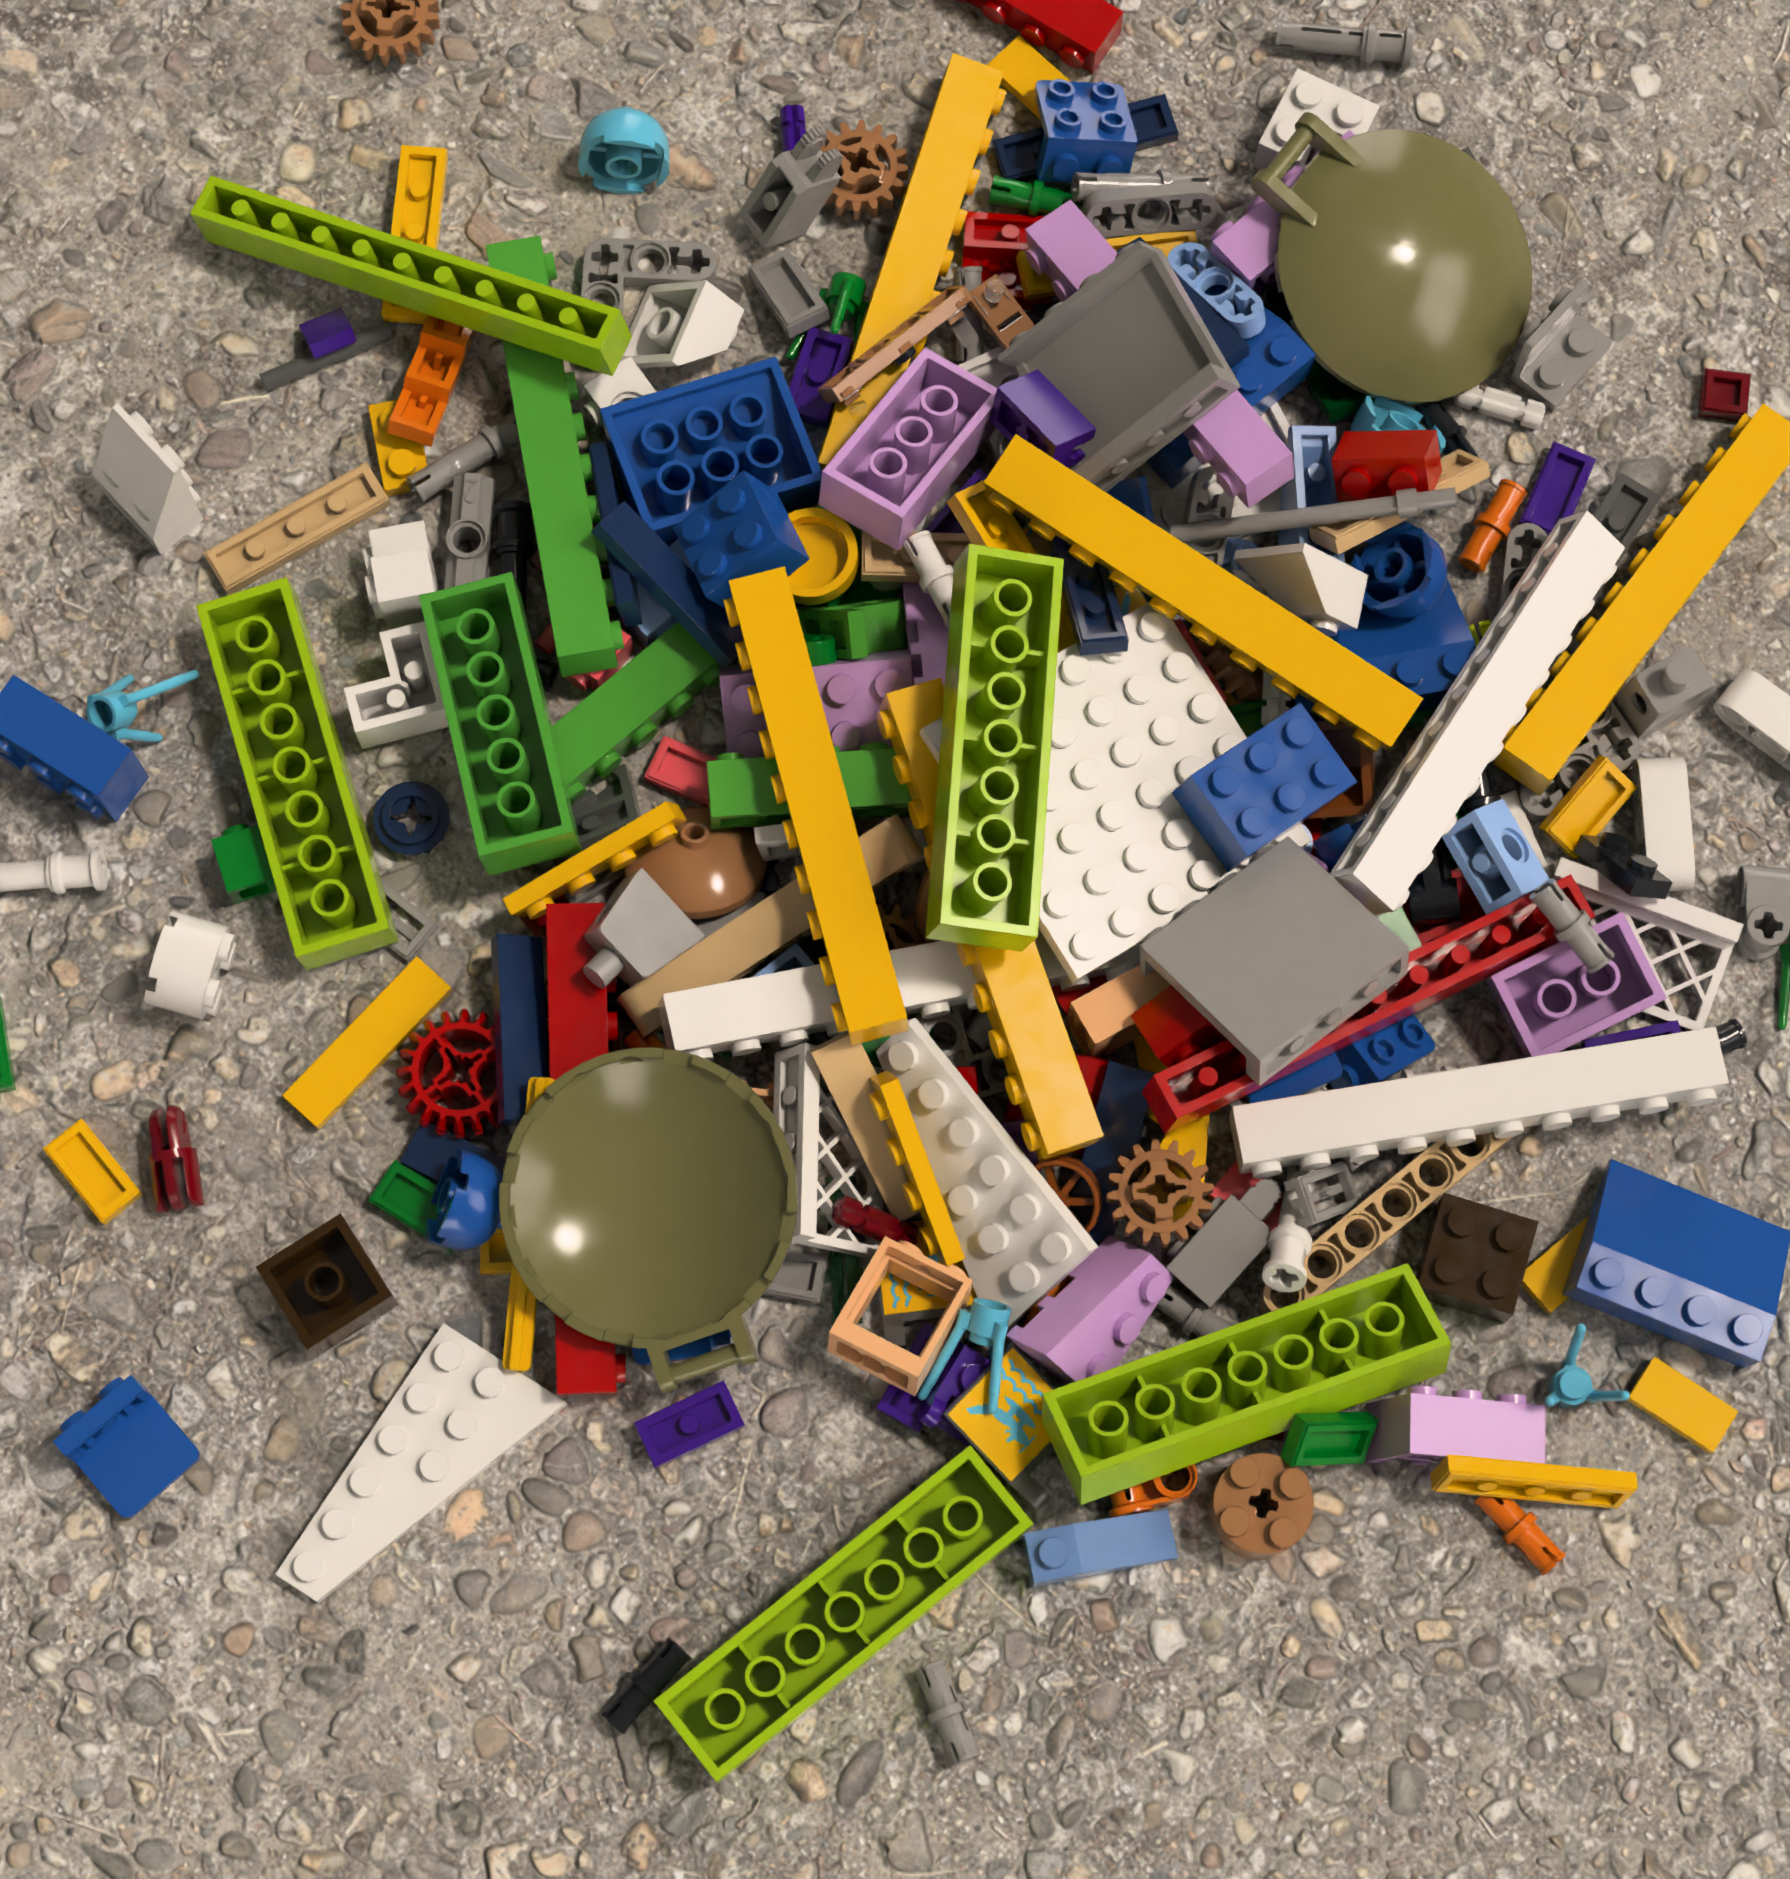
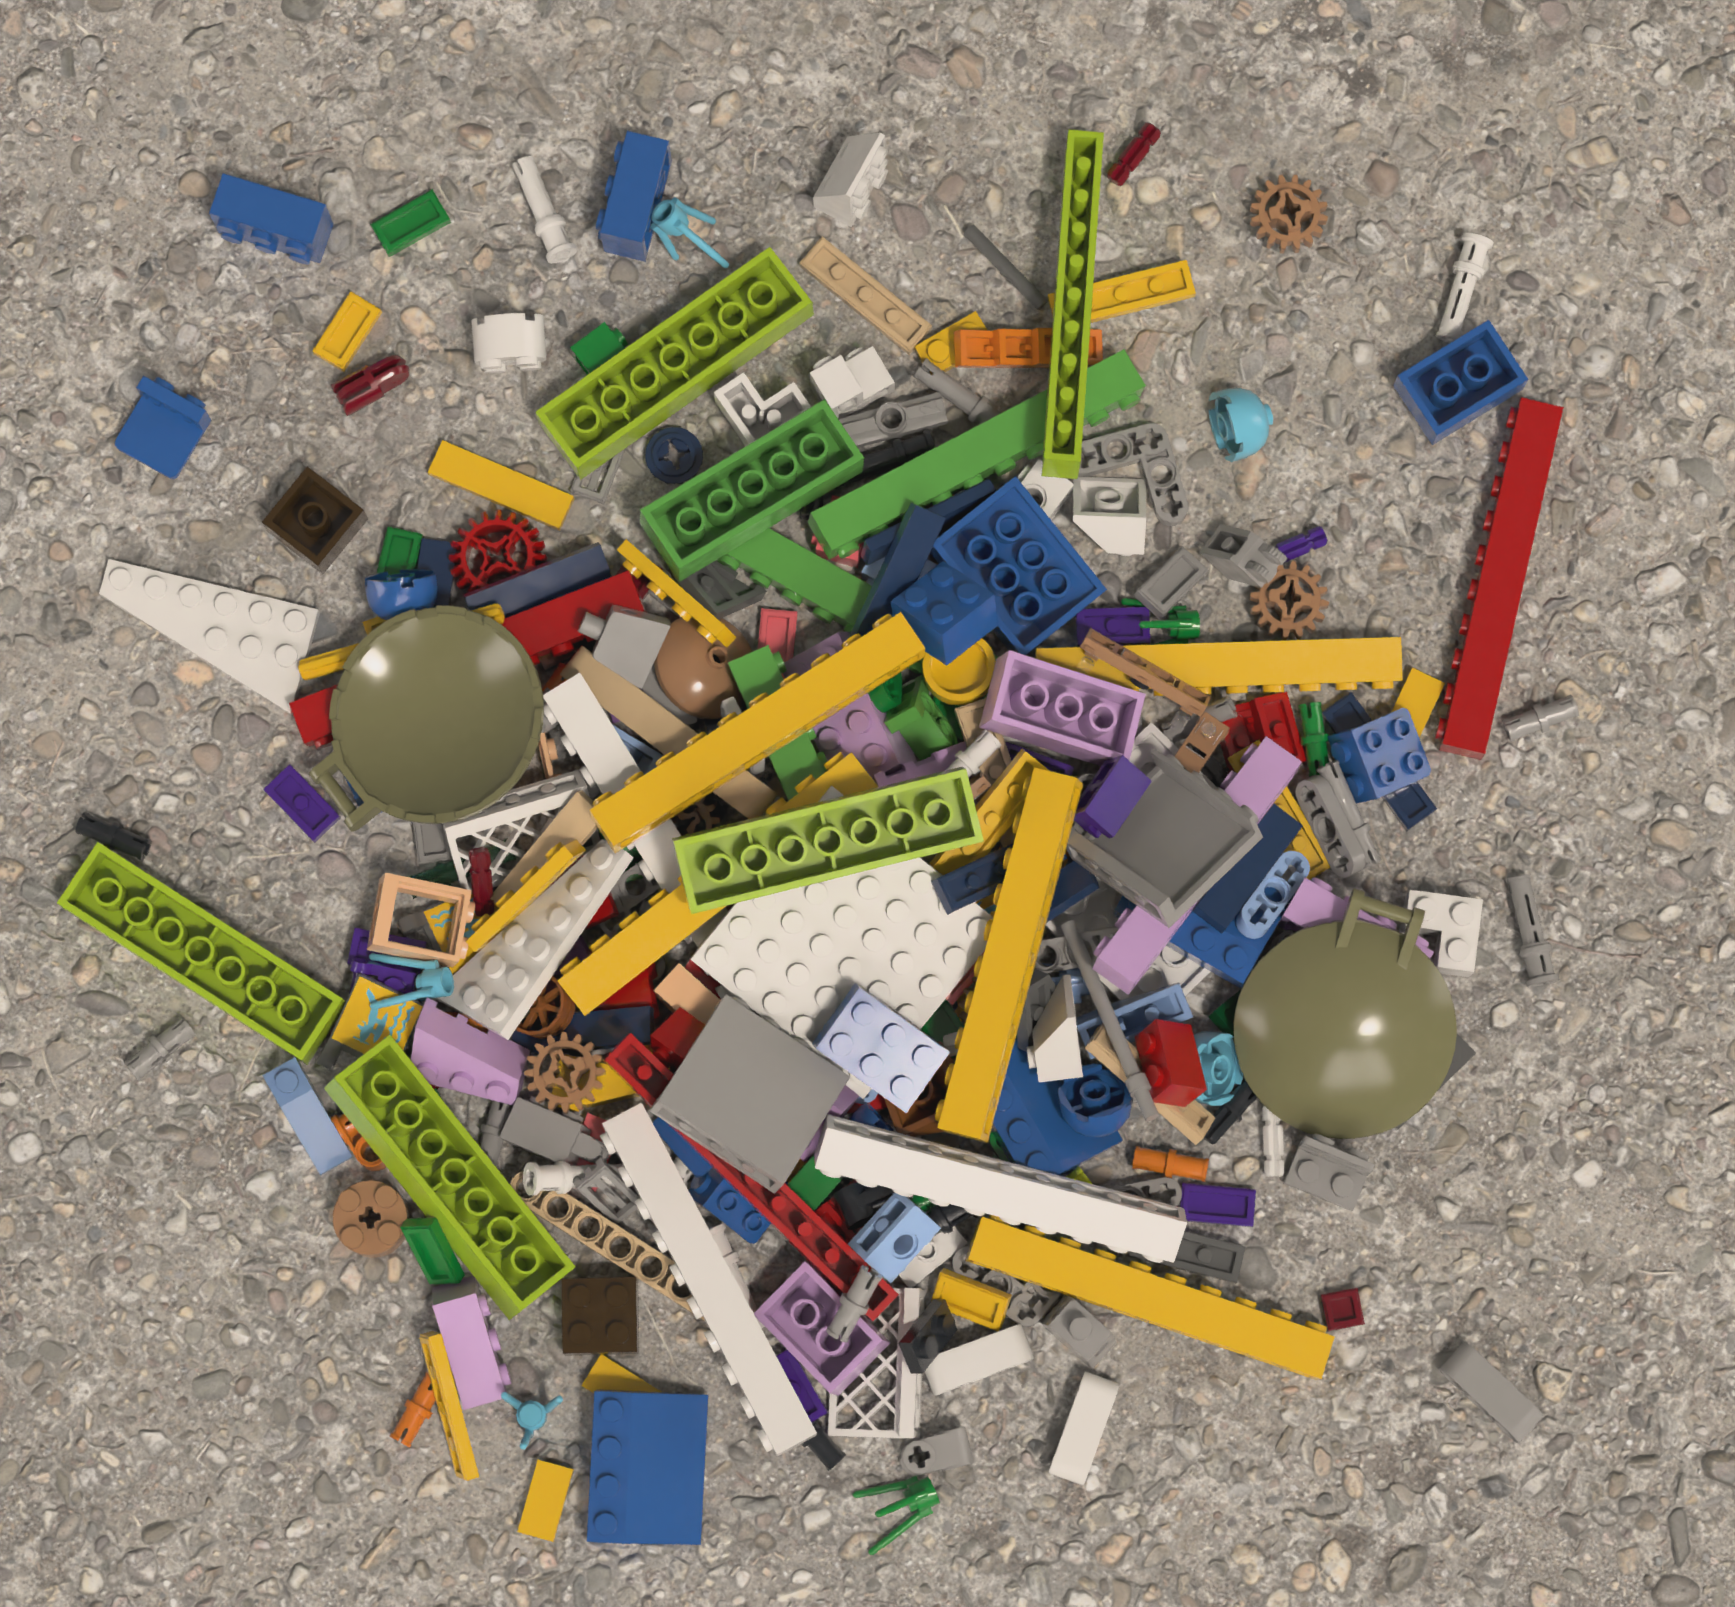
camera: 75 degrees right, 5 degrees up
(244, 161) = (1133, 154): none -> dark red axle
(328, 333) = (1021, 261): dark purple tile -> none

